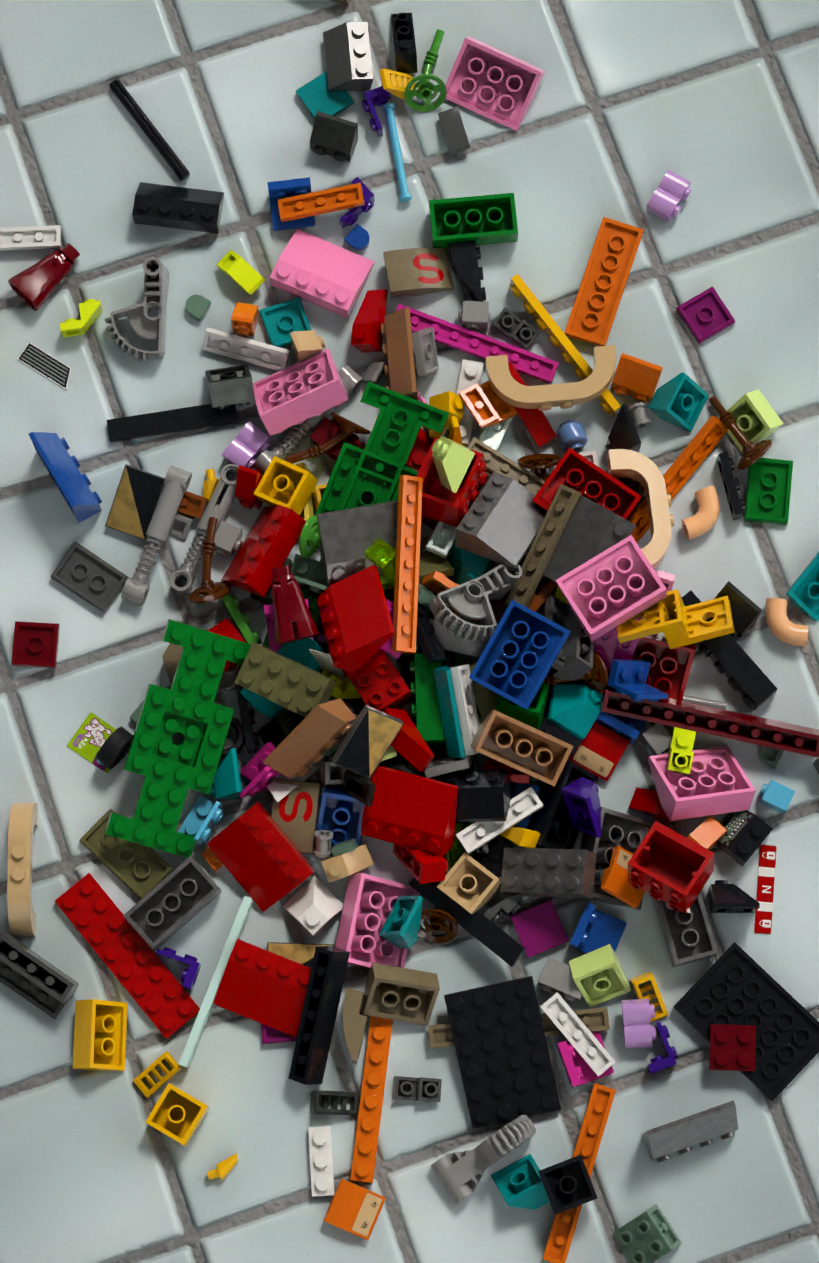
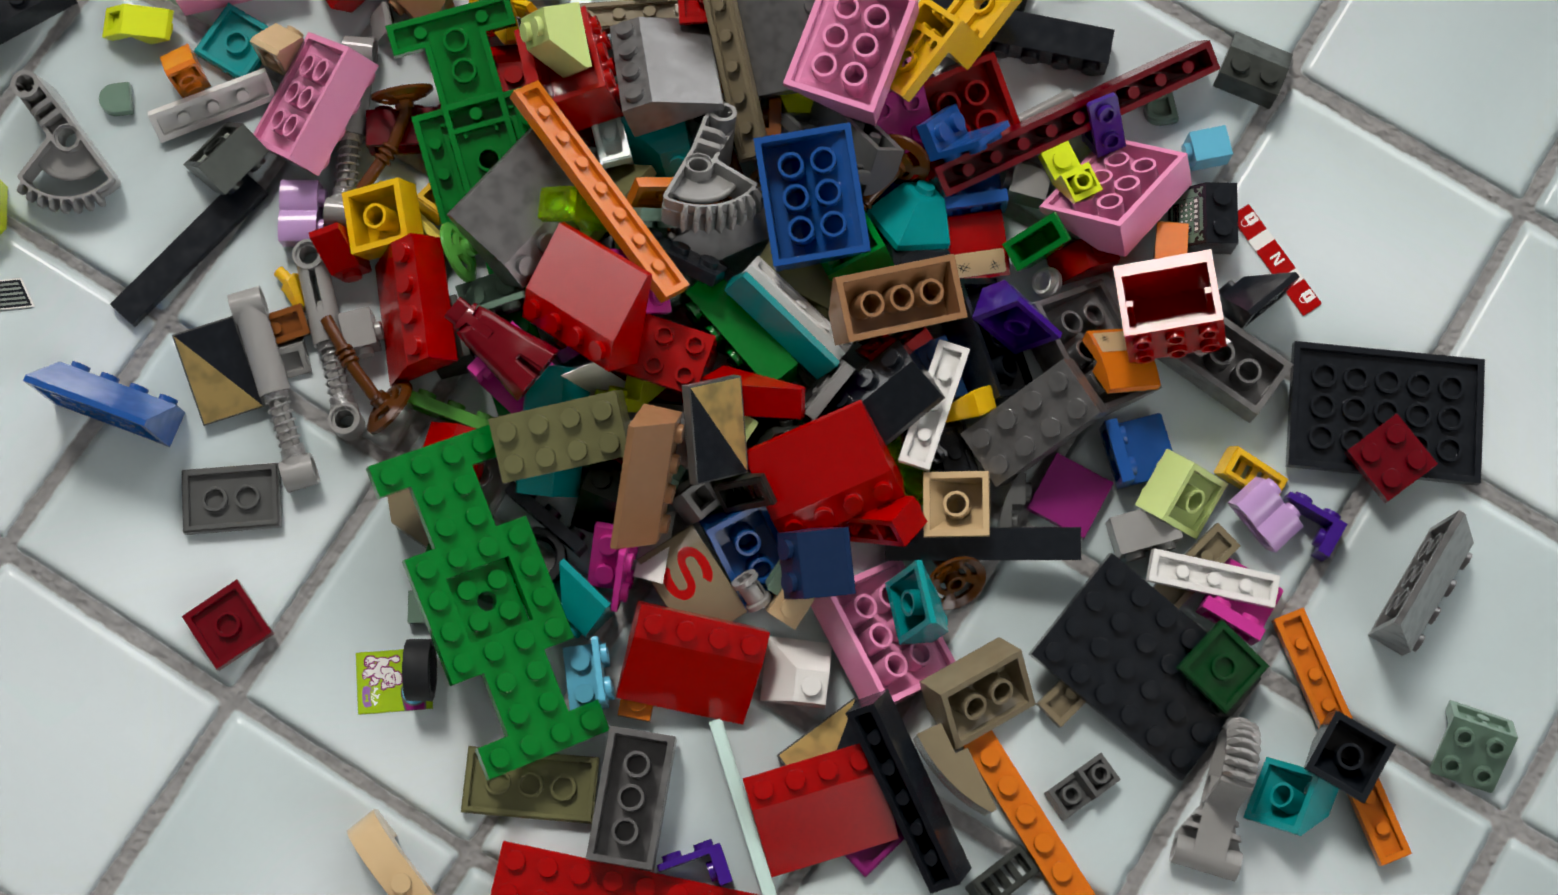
camera: 40 degrees left, 0 degrees up
(364, 854) = (816, 563): none -> dark blue slope
(542, 1084) = (1222, 667): none -> dark green plate
(623, 801) = (1047, 282): none -> white plate
(631, 775) = (1037, 242): none -> green slope
(724, 739) = (1105, 125): none -> dark purple bracket

